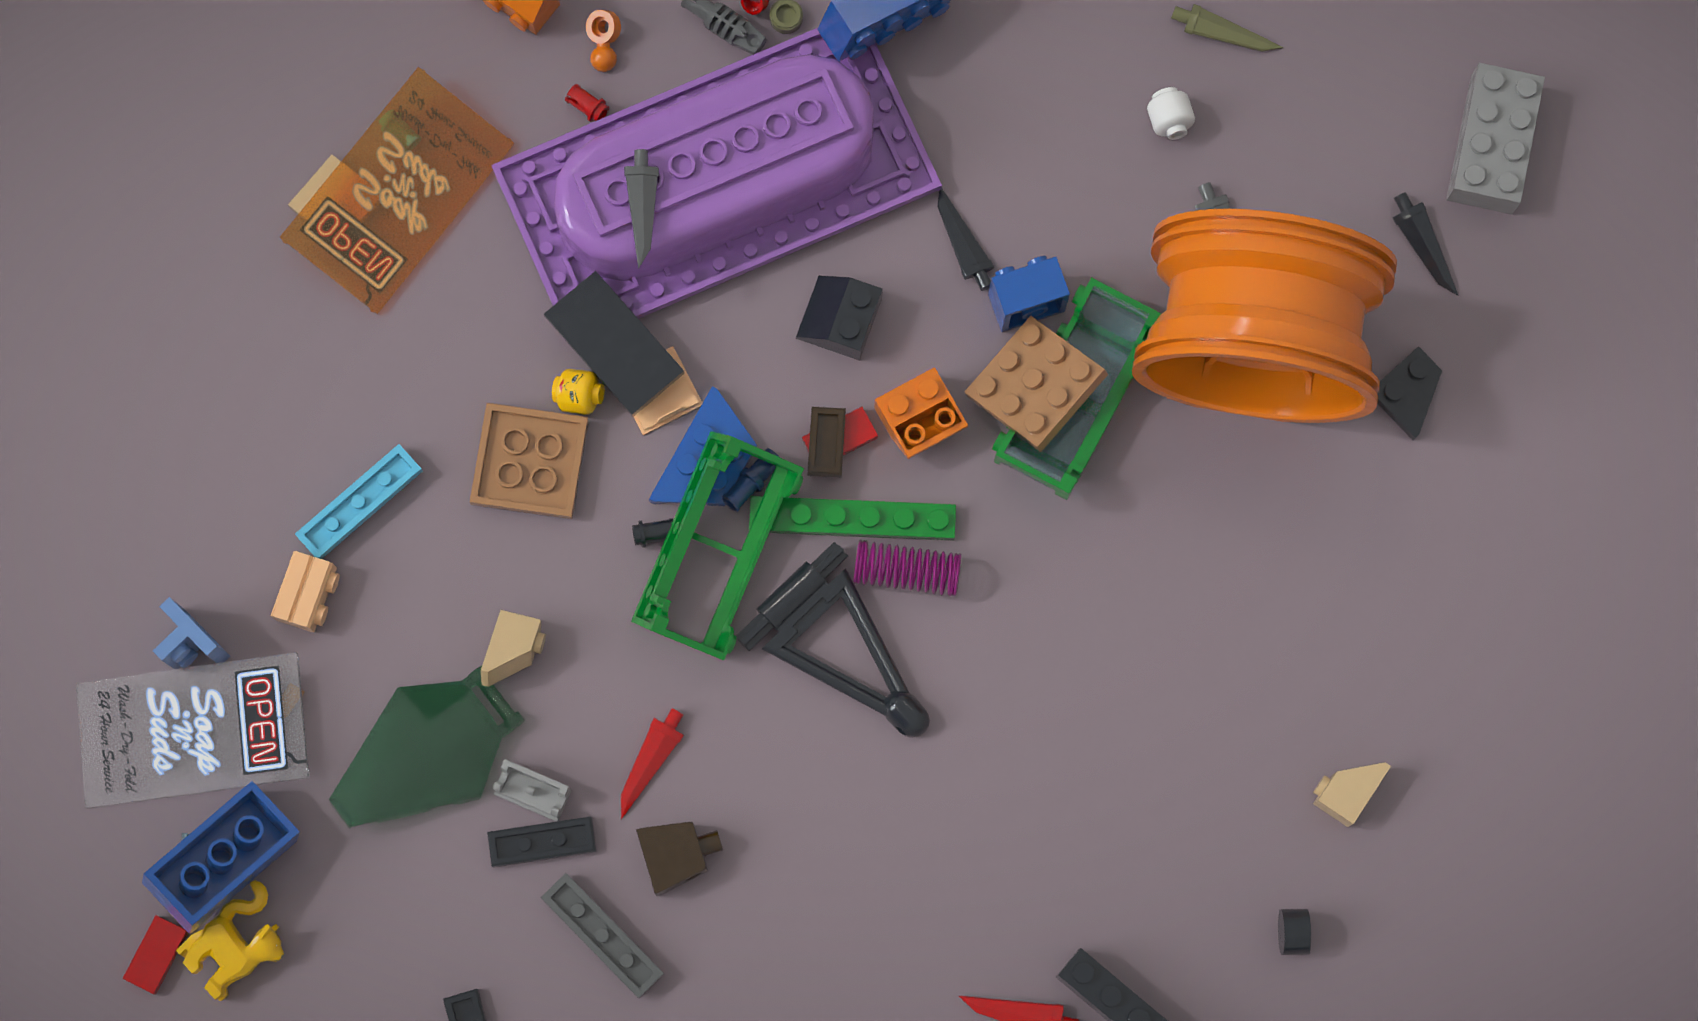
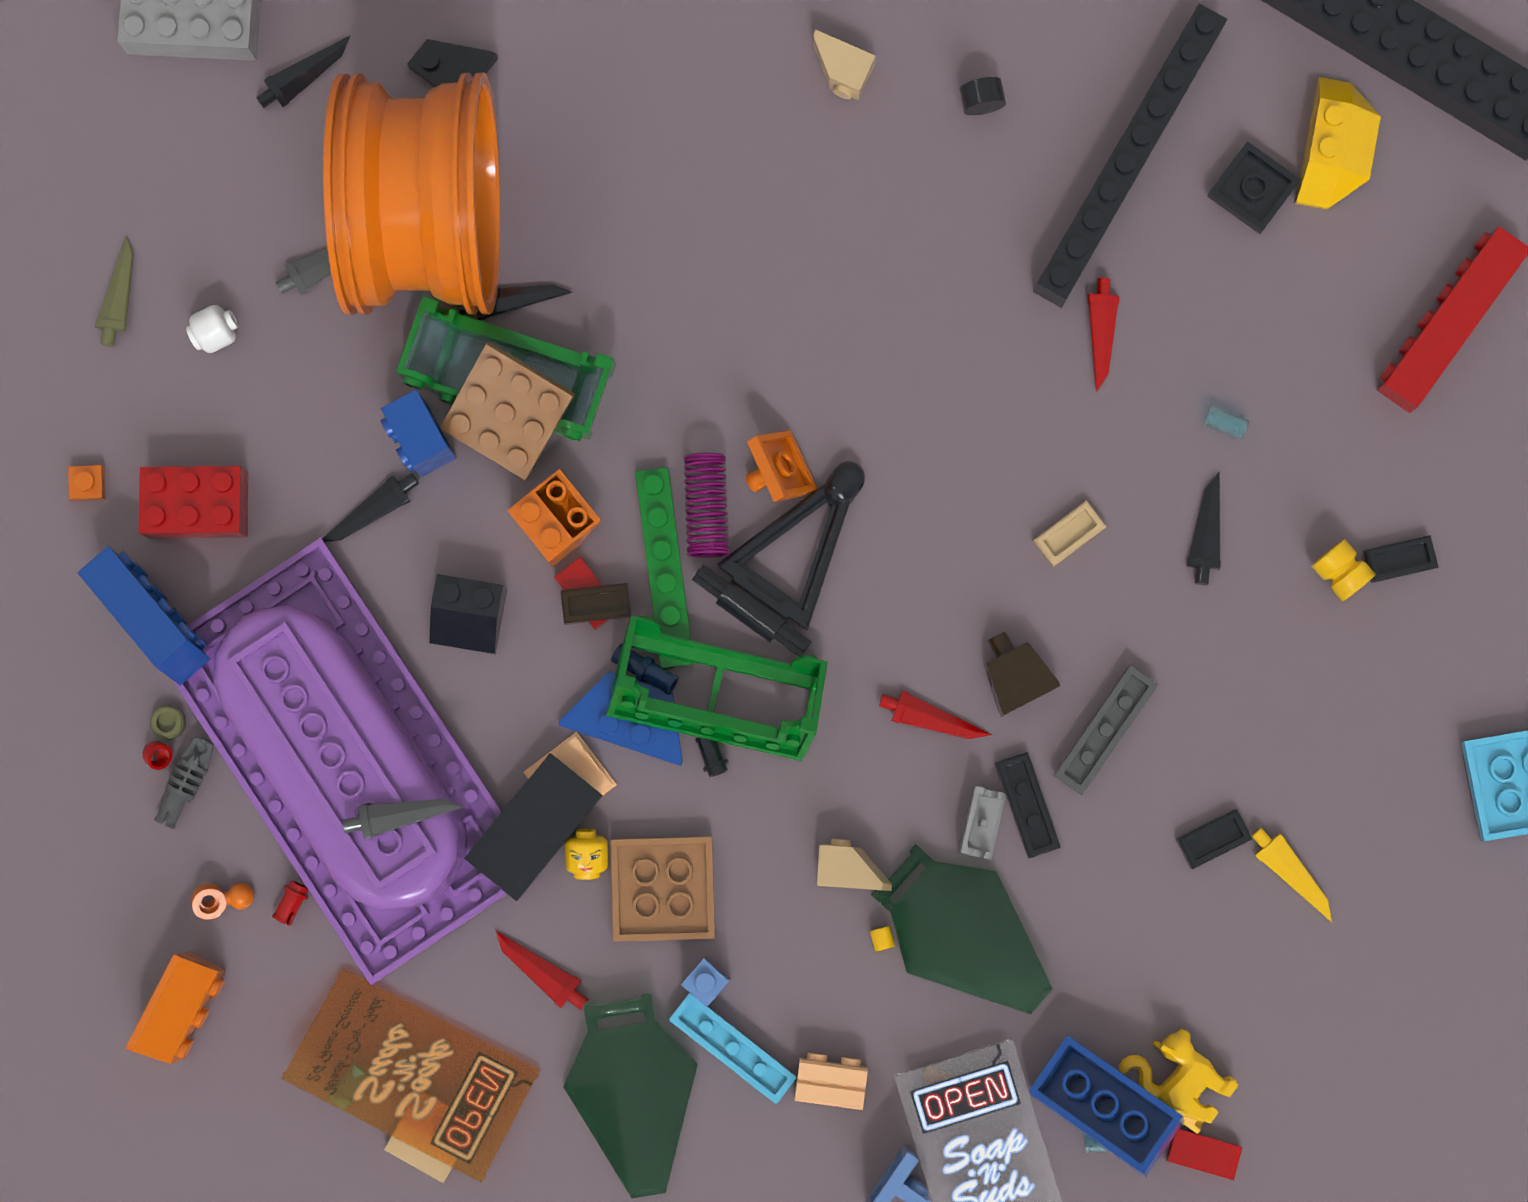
camera: 95 degrees left, 5 degrees up
(336, 398) = (633, 1093): none -> clear green windscreen
(428, 485) = (705, 982): none -> medium blue brick
(436, 669) = (882, 938): none -> yellow piece
(464, 338) = (549, 978): none -> red bar
(813, 938) = (1069, 533): none -> tan tile
(933, 648) = (779, 467): none -> orange tile
(998, 70) = (193, 502): none -> red brick
(1156, 416) = (518, 297): none -> black bar

